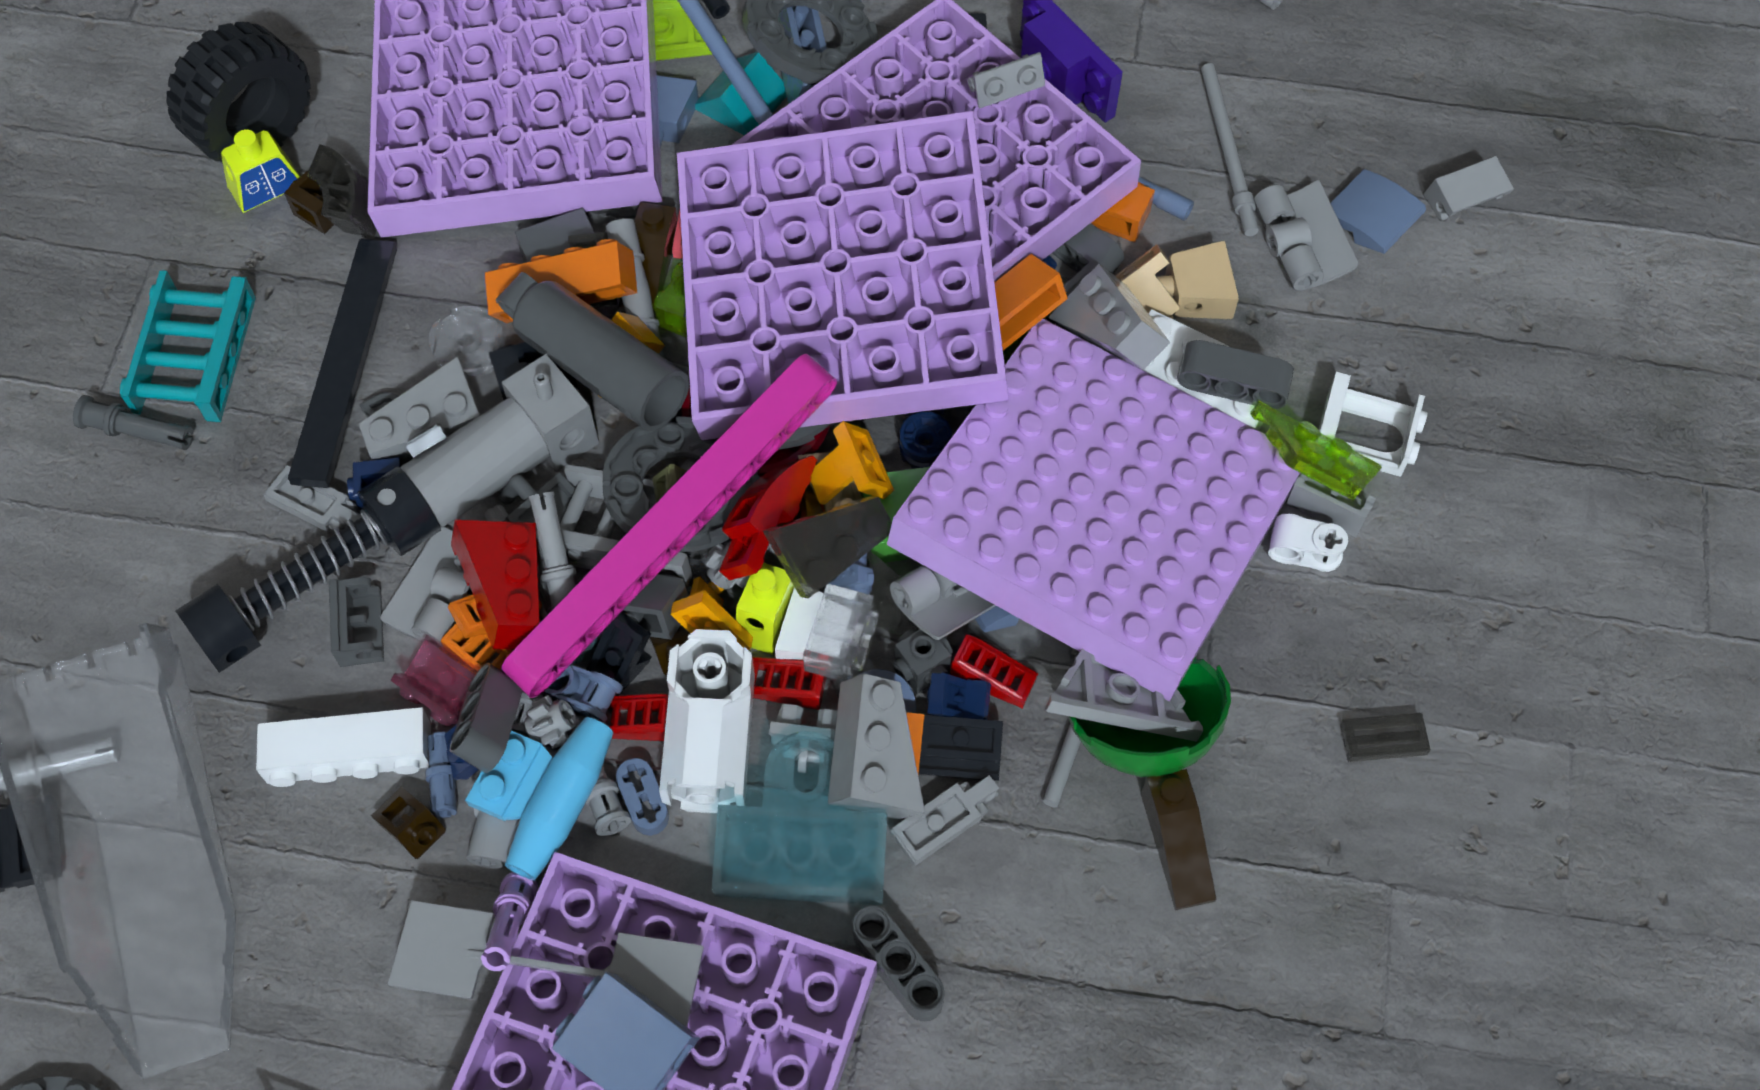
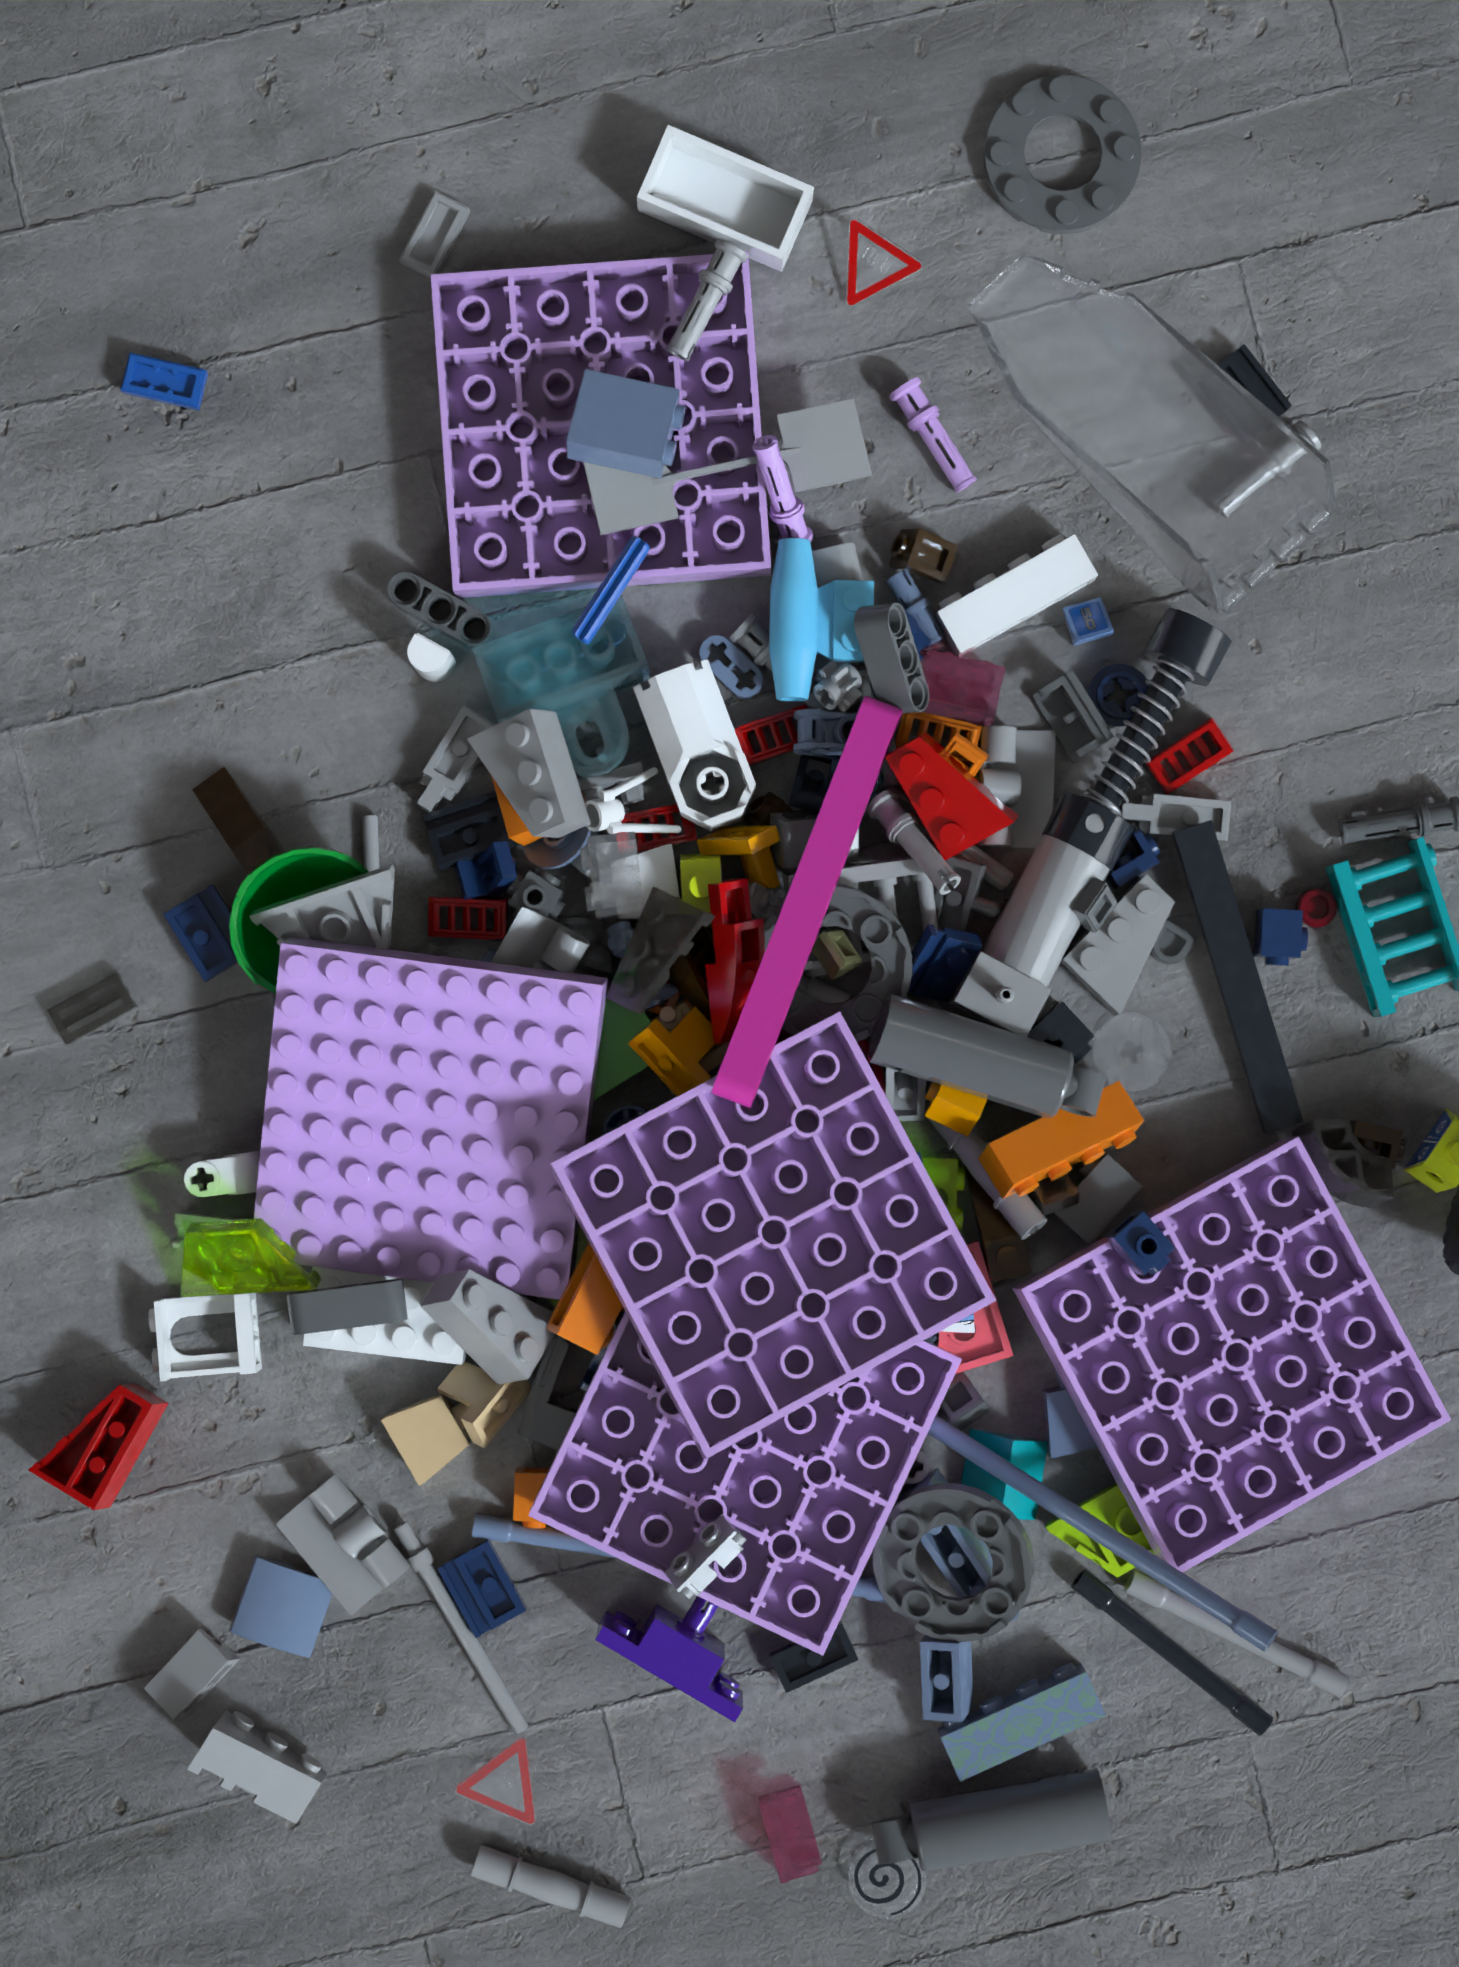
camera: 150 degrees right, 25 degrees up
(247, 391) = (1318, 907): none -> dark red tile
(259, 539) = (1217, 736): none -> red slope
(289, 377) = (1279, 935): none -> dark blue brick
(293, 697) = (1087, 621): none -> slope
(297, 613) = (1103, 685): none -> dark blue gear
(331, 952) = (960, 476): none -> lavender pin
(538, 169) = (1141, 1244): none -> dark blue brick
(583, 457) = (941, 961): none -> dark blue plate
(719, 890) = (610, 590): none -> blue axle
(819, 691) = (609, 812): none -> white plant
(927, 910) = (430, 659): none -> white brick
(1200, 165) = (482, 1588): none -> dark blue plate
(1238, 41) = (503, 1784): none -> clear piece
(1249, 757) = (204, 931): none -> dark blue plate
(1436, 109) = (259, 1766): none -> light grey wedge
(1495, 369) = (104, 1447): none -> red wedge

